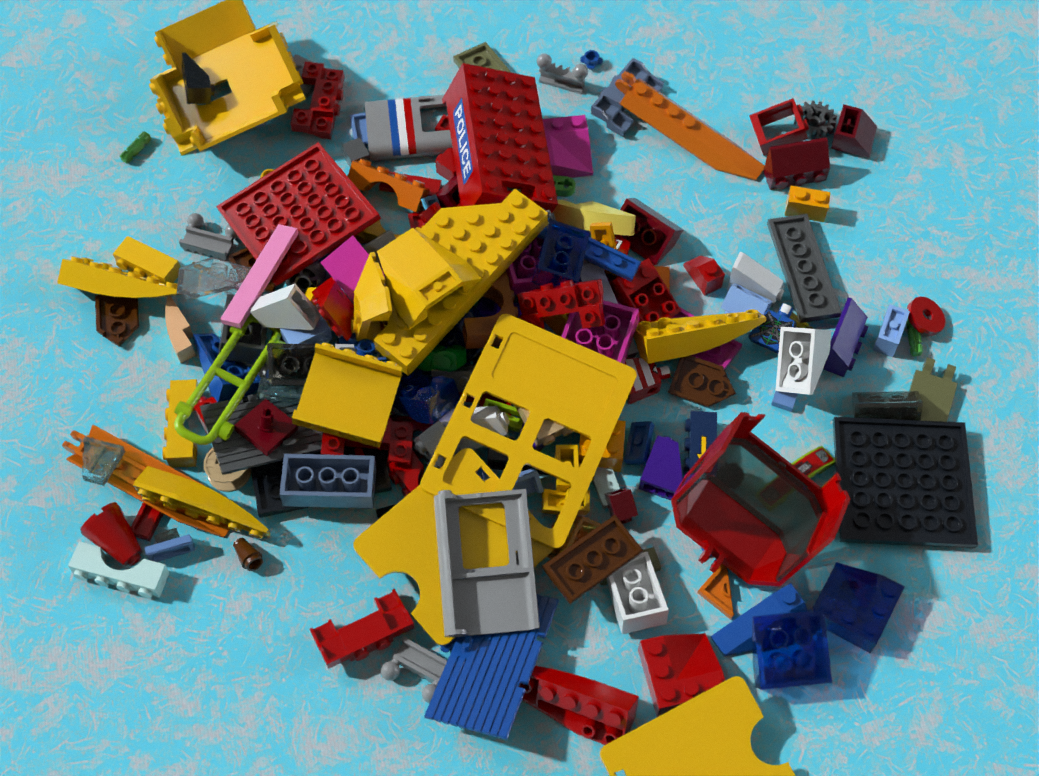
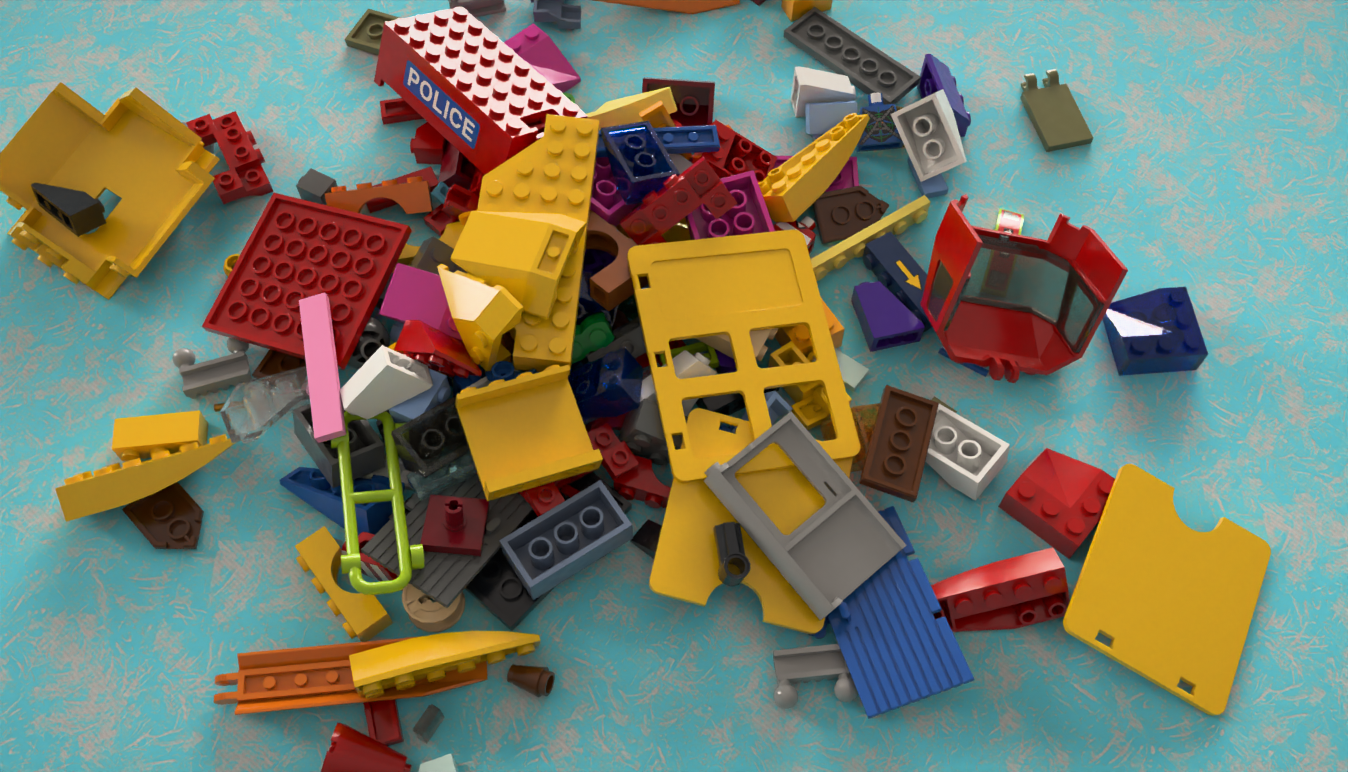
camera: 35 degrees left, 0 degrees up
(100, 460) = (279, 687): clear light blue wing -> none
(135, 147) = (45, 320): bright green axle -> none
(170, 548) = (438, 732): medium blue tile -> none
(178, 331) = (259, 488): light nougat slope -> none
(359, 127) = (300, 160): medium blue tile -> none
(364, 635) = (728, 685): red bracket -> none
(397, 132) = (346, 142): light grey piece -> none
(418, 554) = (730, 551): none -> black piece
(621, 504) = (873, 374): dark red brick -> none
(639, 442) = (840, 304): blue plate -> none
(682, 407) = (854, 246): none -> light yellow plate
(705, 274) = (767, 111): red slope -> none
(718, 591) = (1024, 401): orange tile -> none
(737, 635) = (1096, 398): blue wedge -> none
(790, 649) = (1145, 408): clear blue slope -> none
(887, 405) = (1028, 137): clear smoke slope -> none
(891, 330) = (977, 66): light blue panel -> none
(905, 482) = (1100, 183): black plate -> none
(914, 340) = (996, 65): bright green axle -> none
(936, 318) = (992, 40): red tile -> none

